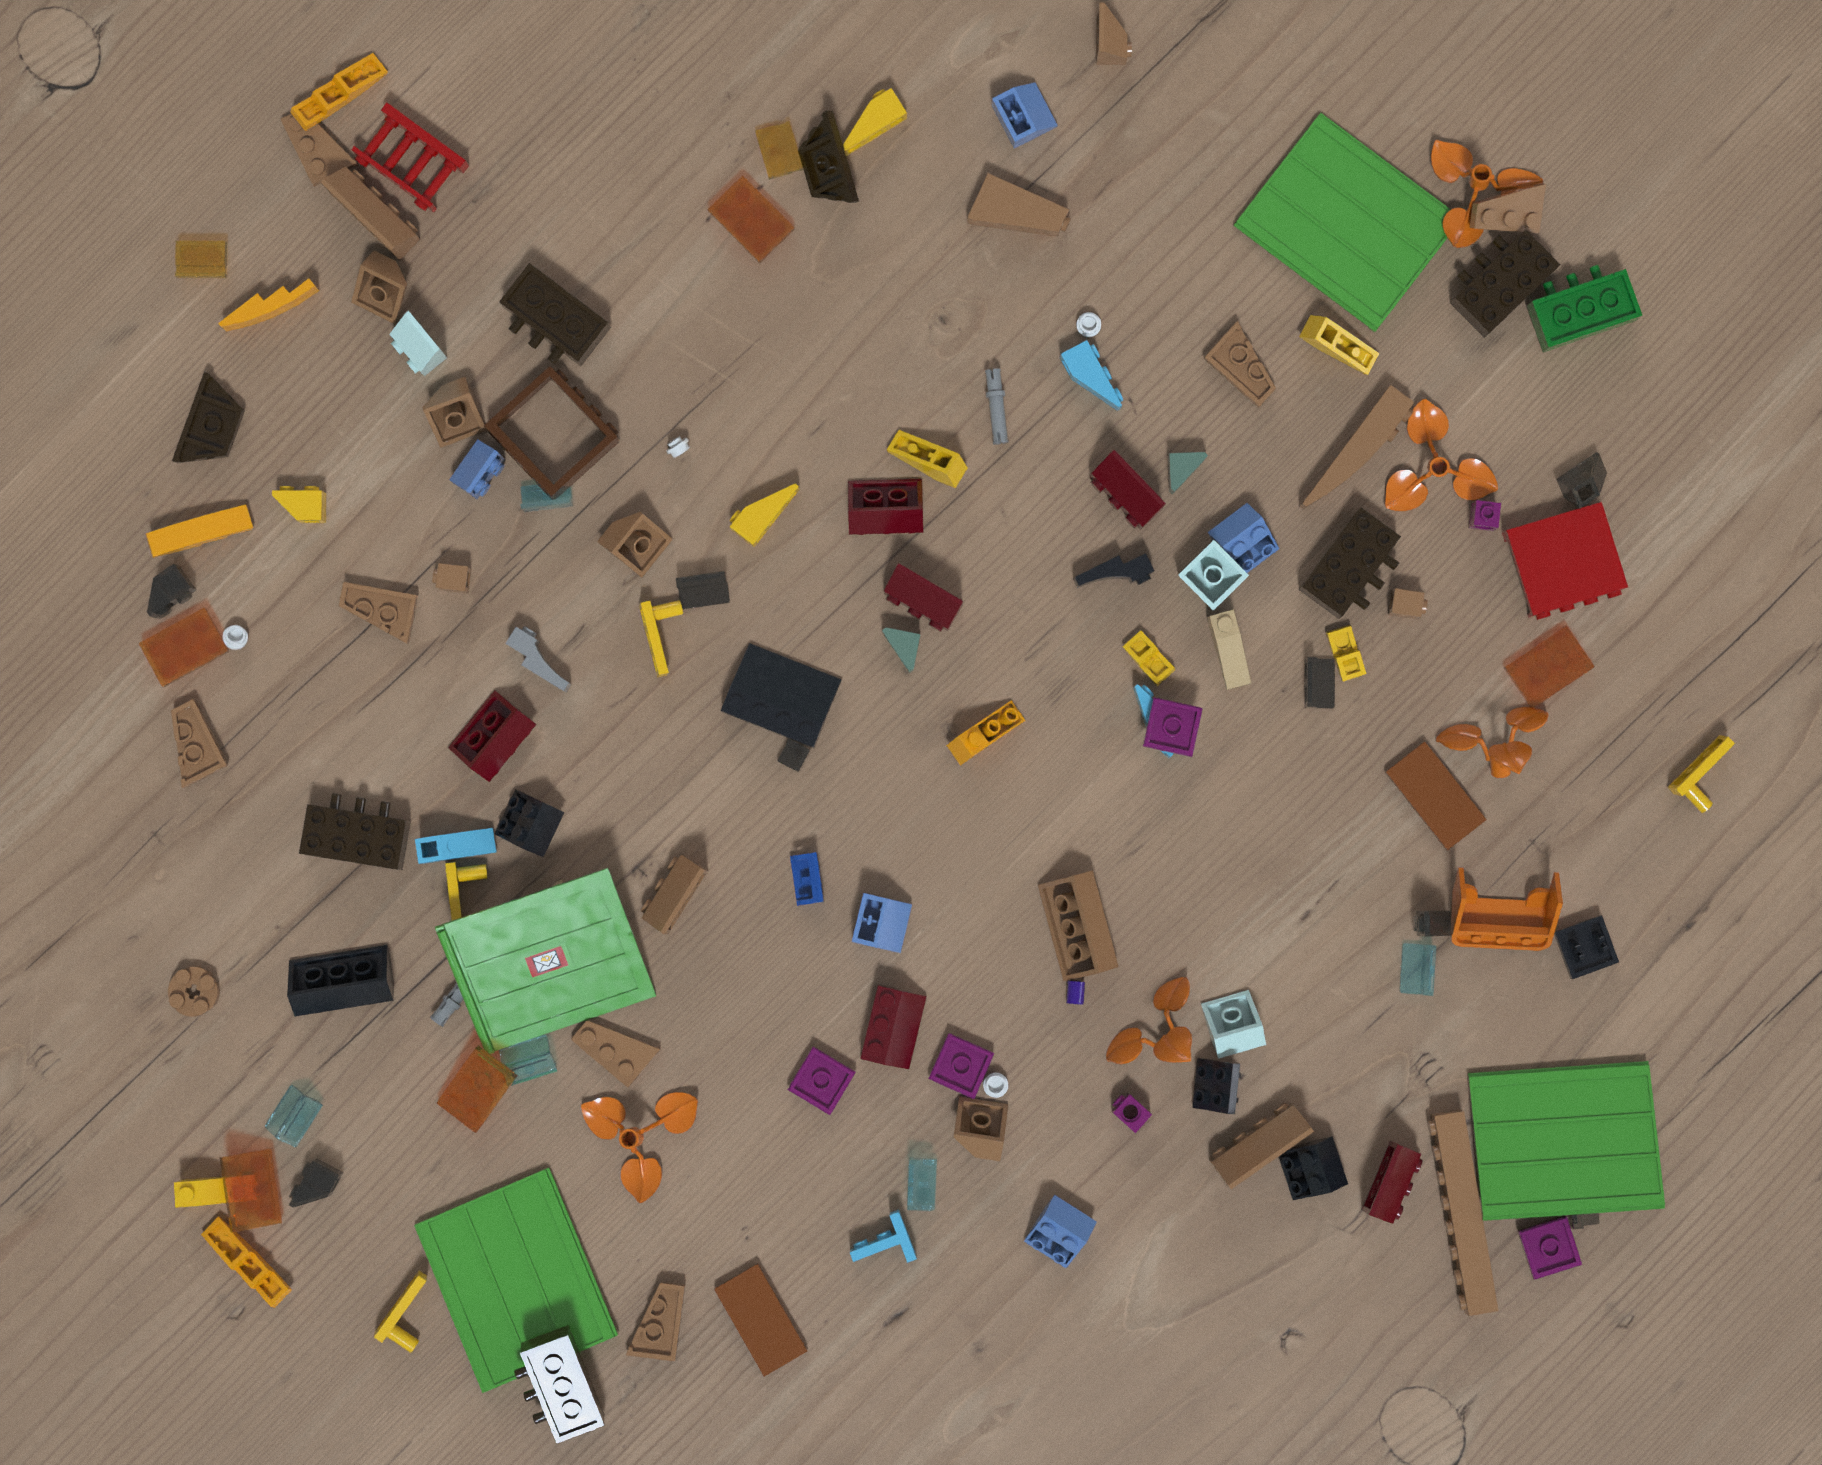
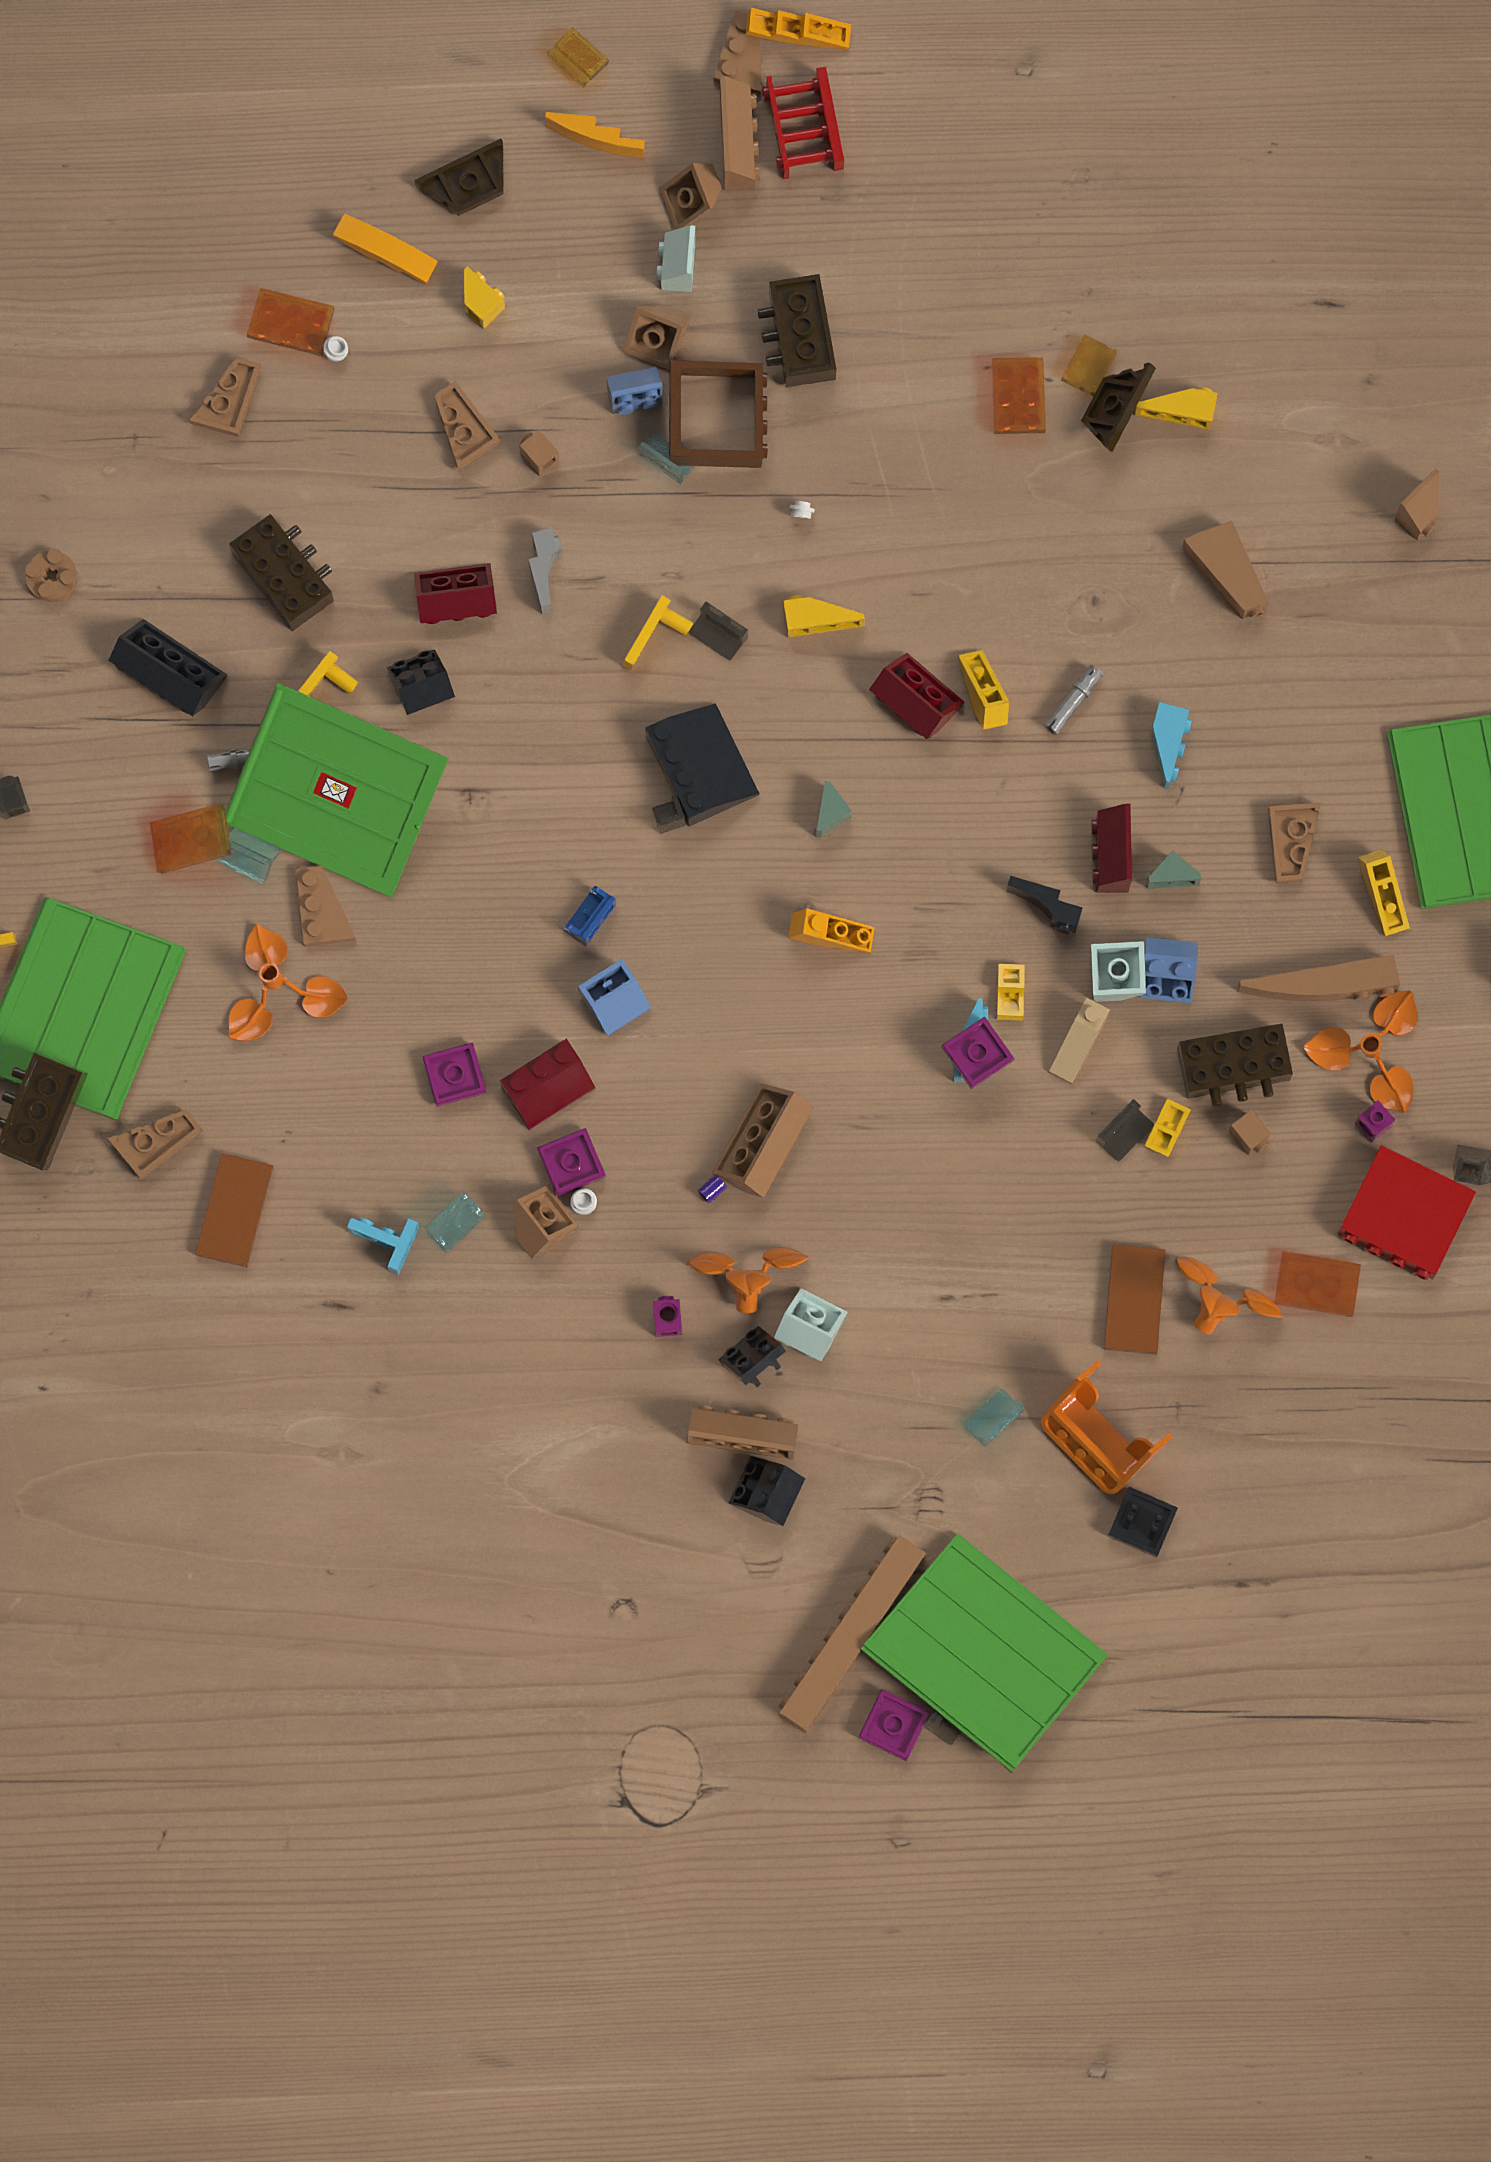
camera: 40 degrees right, 10 degrees down
(167, 590) = (320, 270): clear smoke slope -> none
(293, 1116) = (34, 734): clear light blue panel -> none
(455, 845) = (348, 646): medium azure slope -> none
(635, 542) = (702, 550): medium nougat slope -> none
(673, 894) = (478, 832): medium nougat slope -> none
(922, 598) = (879, 786): dark red slope -> none
(1023, 114) = (1302, 503): medium blue slope -> none
(1060, 1231) = (526, 1355): medium blue slope -> none
(1088, 324) = (1203, 703): white plate -> none
(1392, 1182) = (818, 1557): dark red slope -> none
(1432, 923) = (1039, 1389): clear smoke slope -> none
(1686, 781) = (1340, 1474): yellow piece -> none

